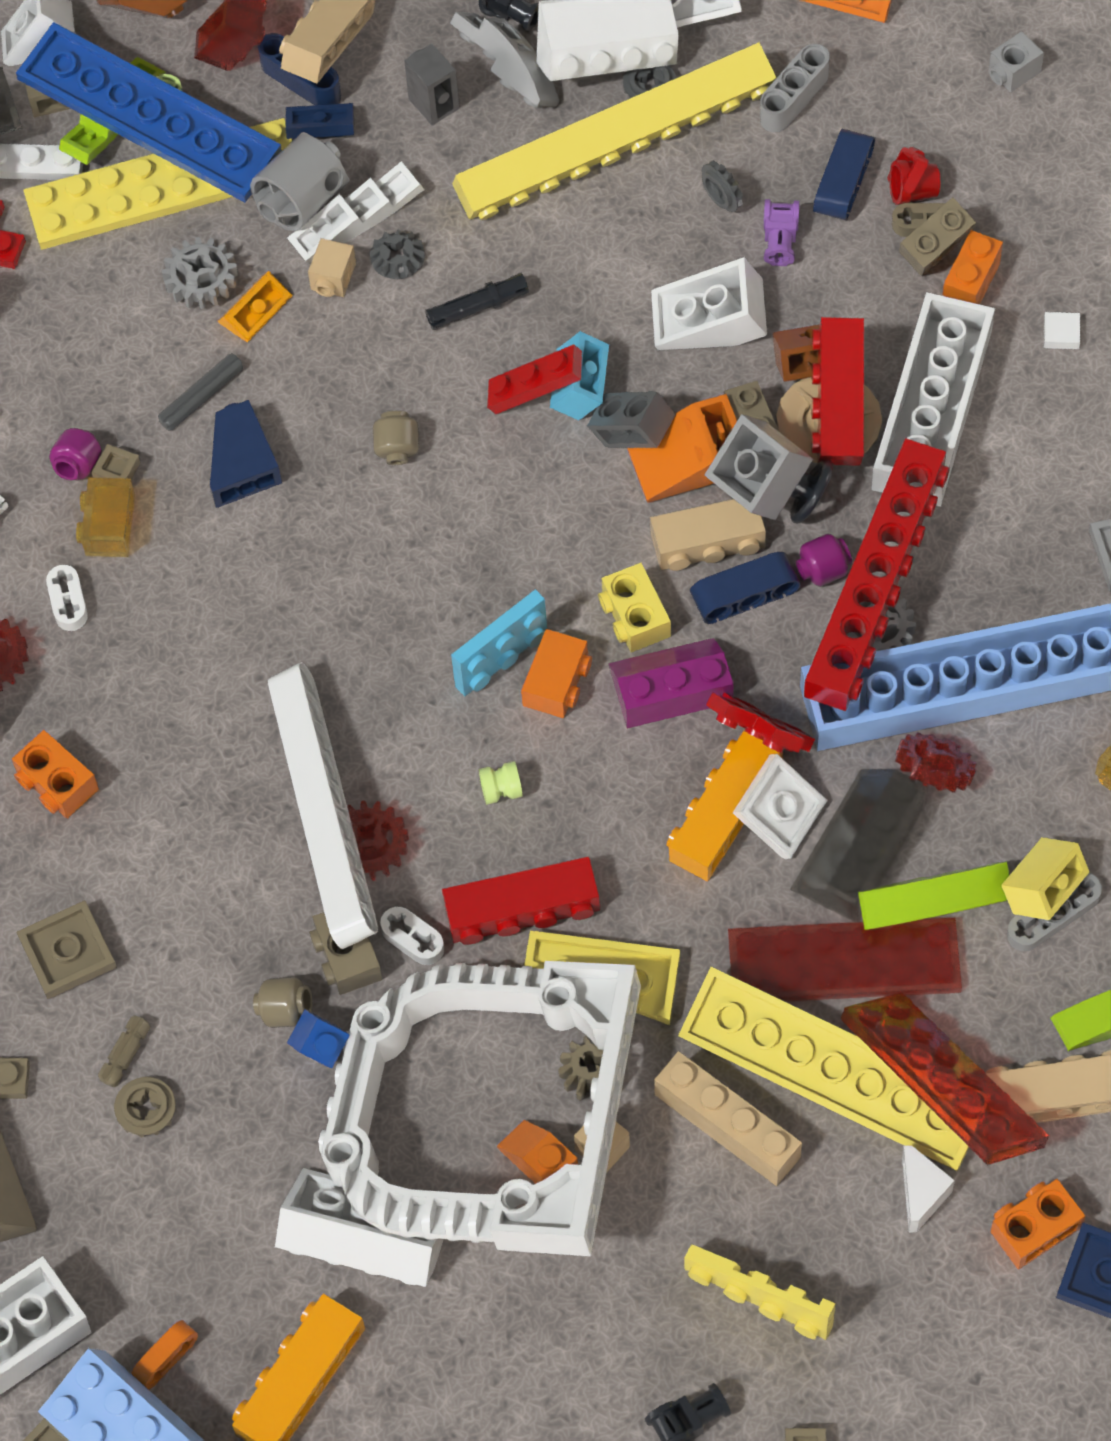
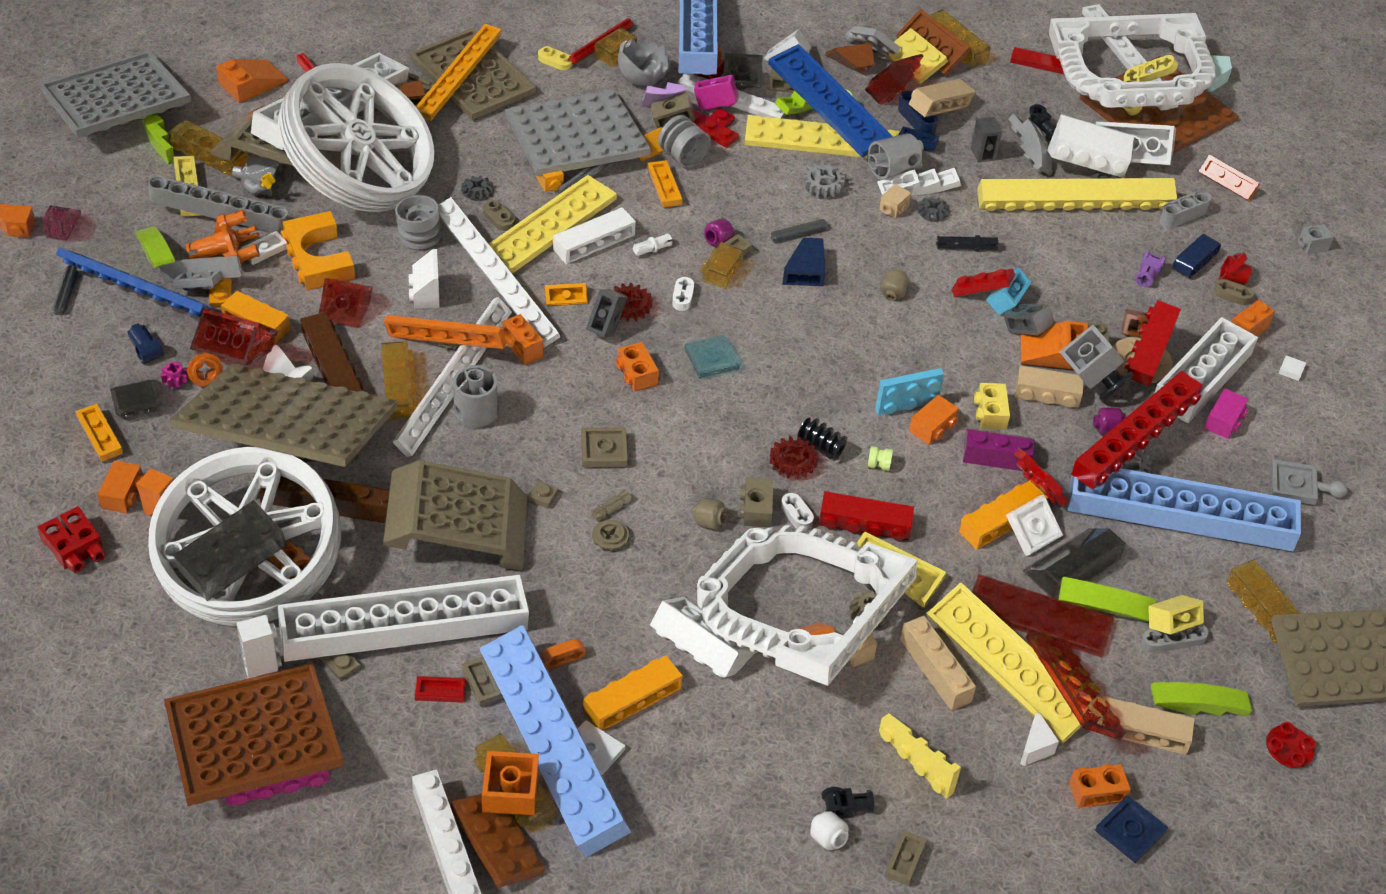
camera: 15 degrees right, 15 degrees down
(163, 701) = (712, 356): none -> clear light blue plate
(255, 307) = (846, 205): light orange slope -> none
(318, 1039) = (722, 535): blue brick -> none
(322, 806) = (776, 429): white beam -> none
(398, 786) = (822, 439): none -> black piece
(710, 308) = (1096, 288): white slope -> none
(721, 186) = (1125, 236): dark grey gear -> none
(744, 586) = (1059, 418): dark blue beam -> none
(935, 762) = (1135, 536): clear red gear -> none
(937, 236) = (1237, 297): dark tan brick -> none
(993, 466) = (1226, 414): none -> dark pink brick

